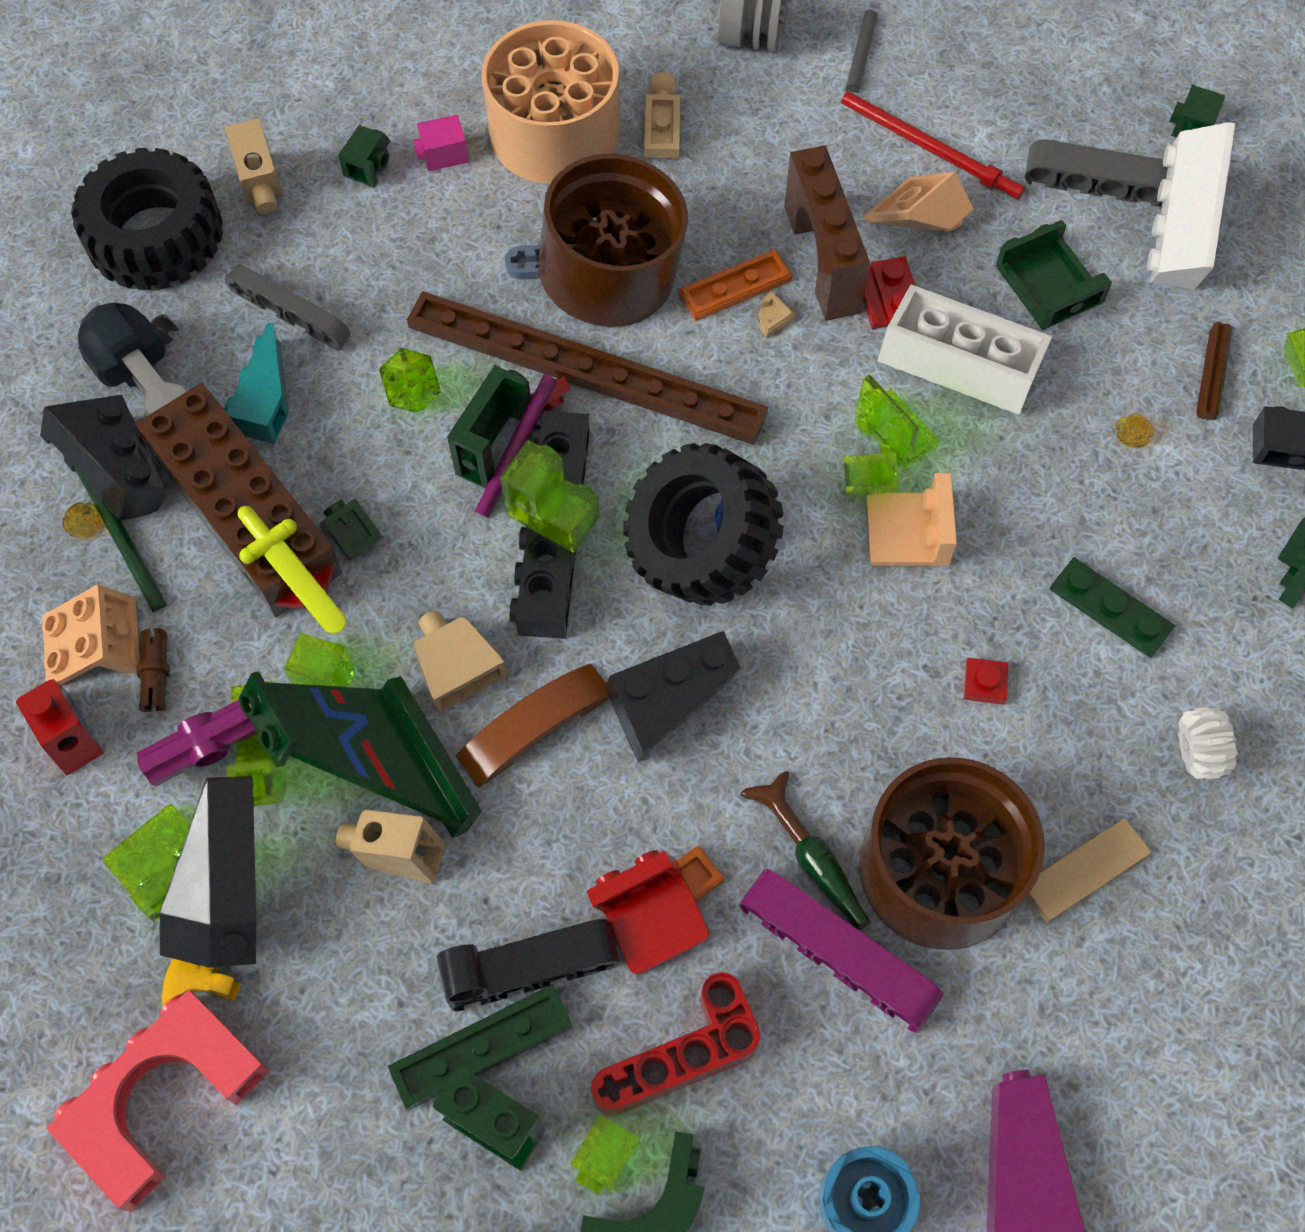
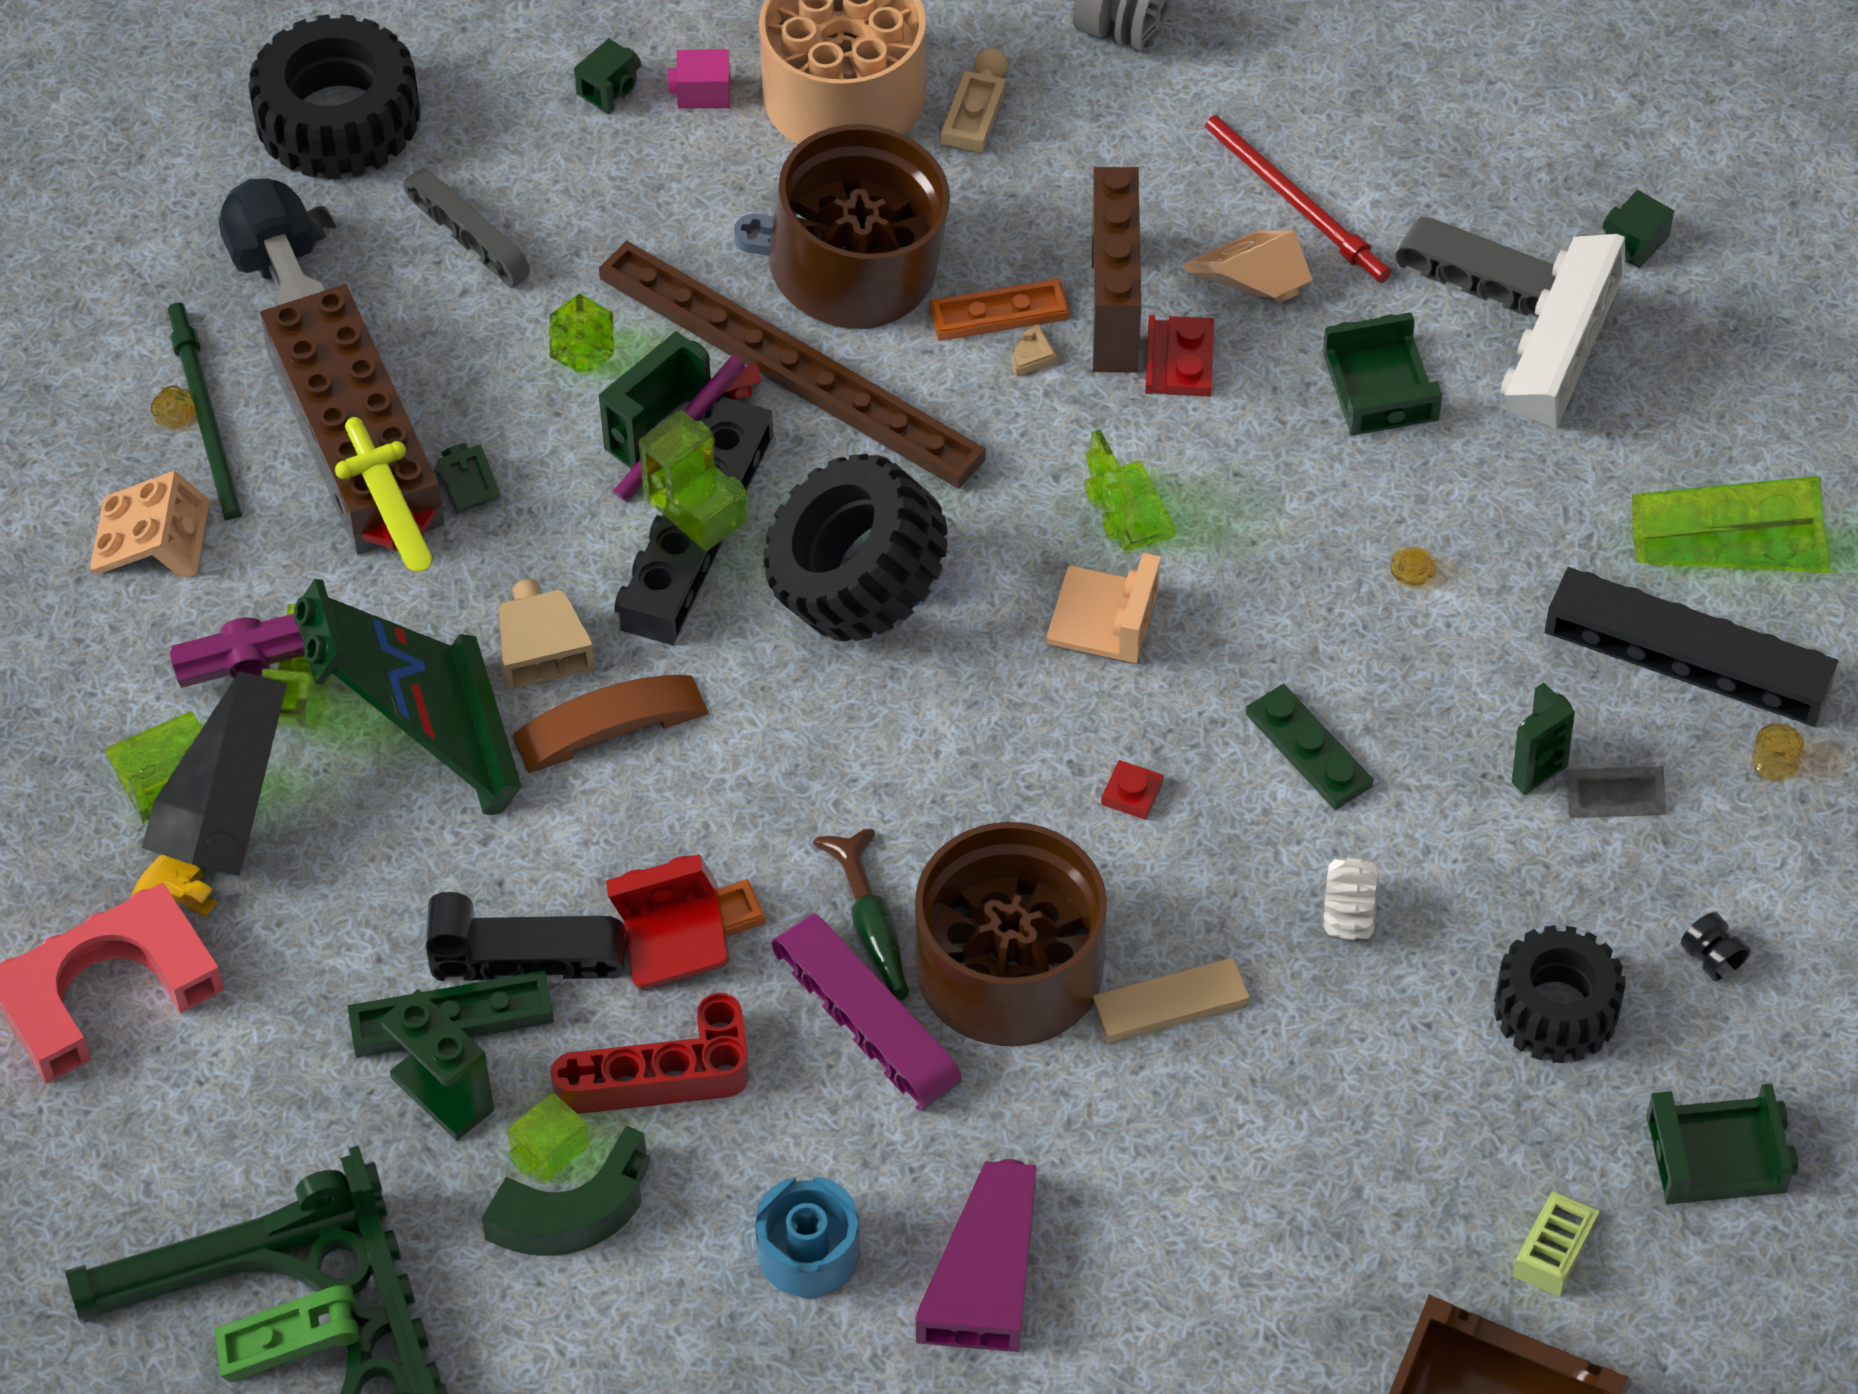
camera: 15 degrees right, 10 degrees down
(54, 717) = (93, 591): red torso -> none
(107, 451) = (222, 338): black wedge -> none
(152, 670) = (209, 576): reddish brown pin -> none
(261, 398) = (409, 316): teal slope -> none
(262, 184) = (474, 71): tan torso -> none
(319, 663) = (393, 601): clear neon green brick -> none
(389, 844) = (415, 795): tan torso -> none
(668, 689) = (769, 713): black wedge -> none
(861, 51) = (1253, 71): dark grey bar -> none
(871, 473) = (1076, 541): clear neon green brick -> none
(964, 349) = (1238, 432): white slope -> none
(1214, 371) = (1538, 522): reddish brown axle -> none

